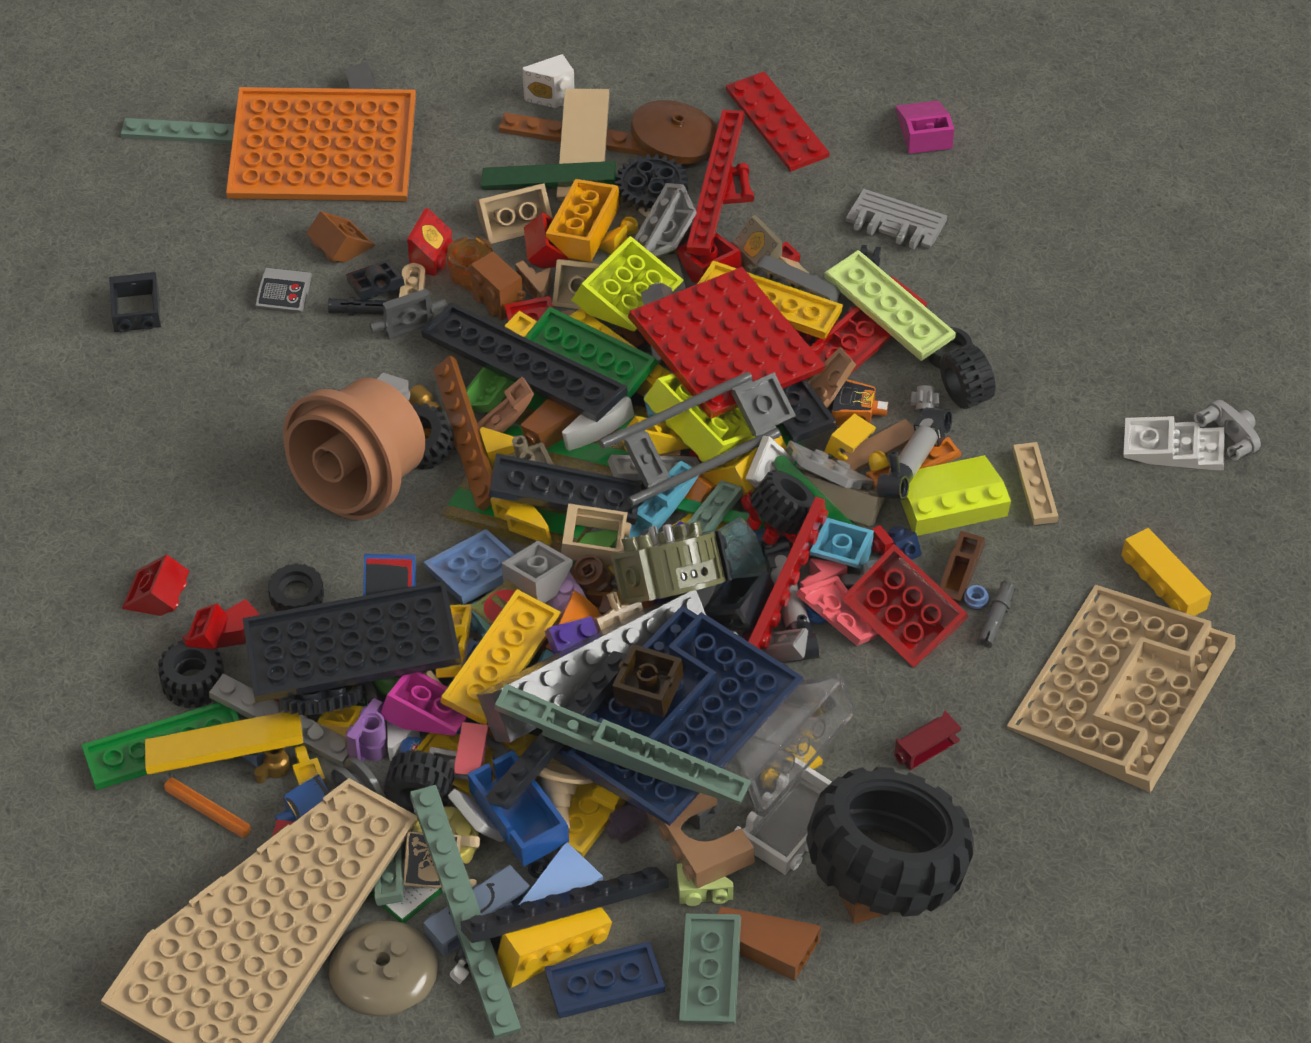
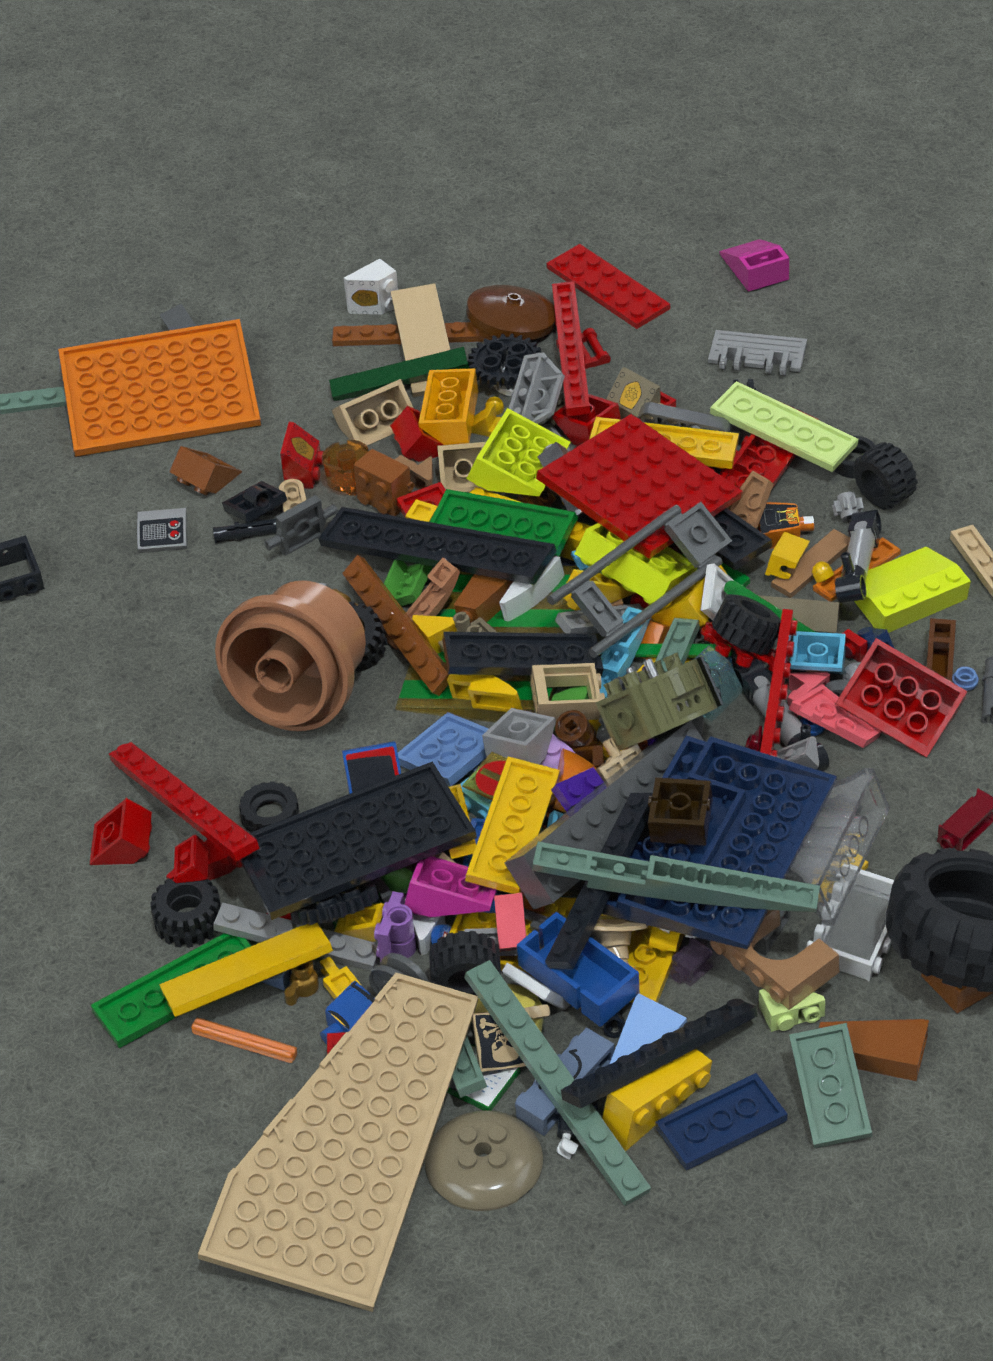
camera: 10 degrees left, 5 degrees down
(216, 569) = (184, 801): none -> red plate
(754, 589) = (746, 710): black window -> none
(837, 472) = (768, 581): light grey wing -> none

